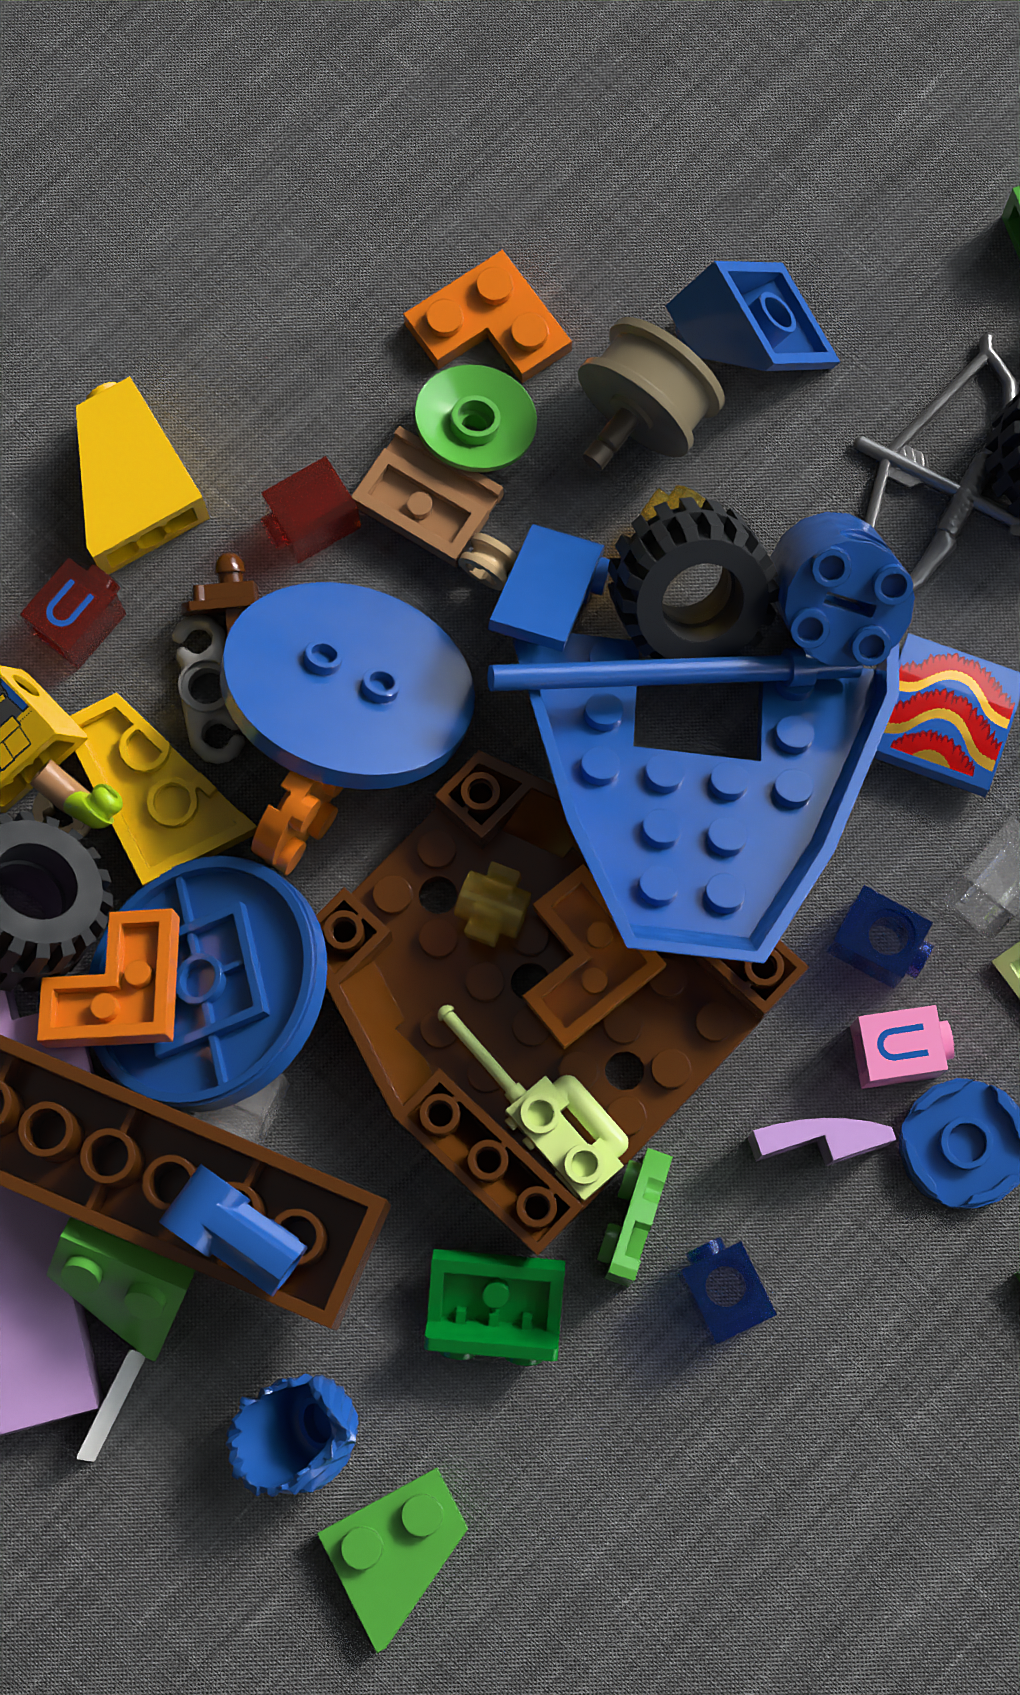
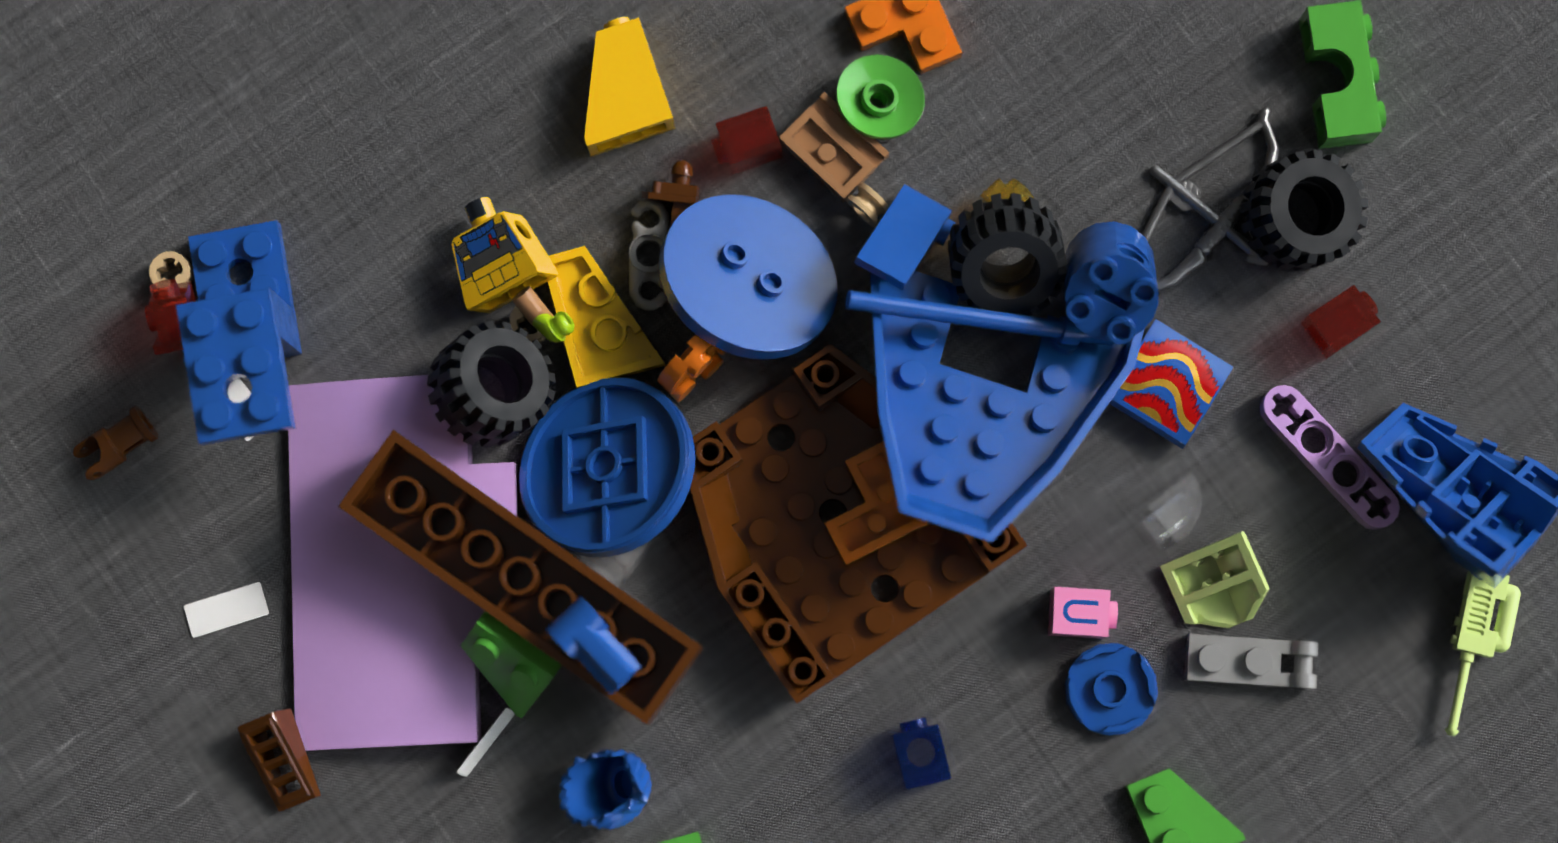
camera: 15 degrees right, 5 degrees up
(75, 611) = (567, 180): clear red brick -> none
(127, 1002) = (553, 469): orange plate -> none
(493, 904) = (817, 454): clear yellow gear -> none
(494, 1306) = (760, 731): green bracket -> none
(538, 1116) = (818, 606): yellowish green piece -> none
(625, 1243) = (859, 707): bright green wing -> none
(648, 391) = (1007, 105): dark tan wheel -> none
(750, 319) = (1096, 65): blue slope -> none
(836, 1138) = (1021, 666): lavender slope -> none
(853, 944) = (1081, 513): clear blue brick -> none

